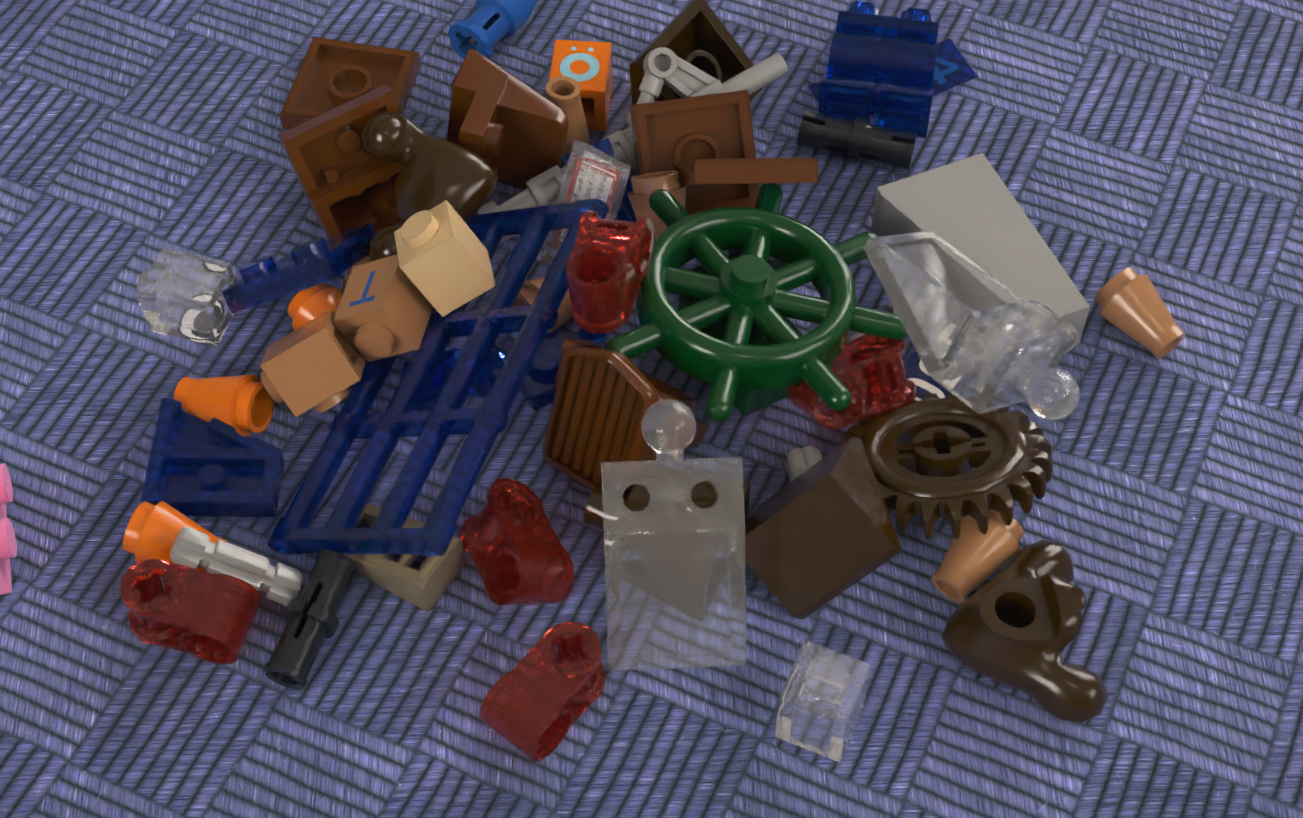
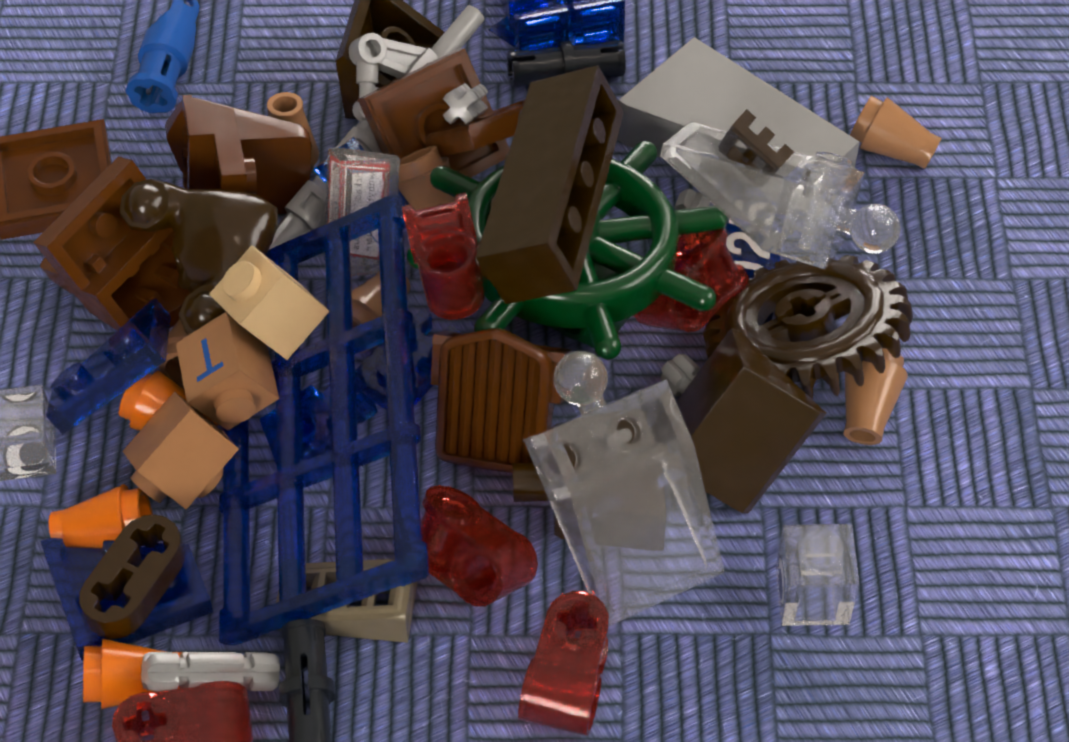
camera: 25 degrees left, 0 degrees up
(214, 457) = (138, 579): none -> dark brown beam
(592, 68) = (284, 73): orange brick -> none
(716, 140) = (465, 103): none -> light grey axle
(732, 239) = (551, 187): none -> dark brown brick
(960, 272) = (756, 145): none -> dark brown tile
(1021, 626) = (948, 441): dark brown head -> none

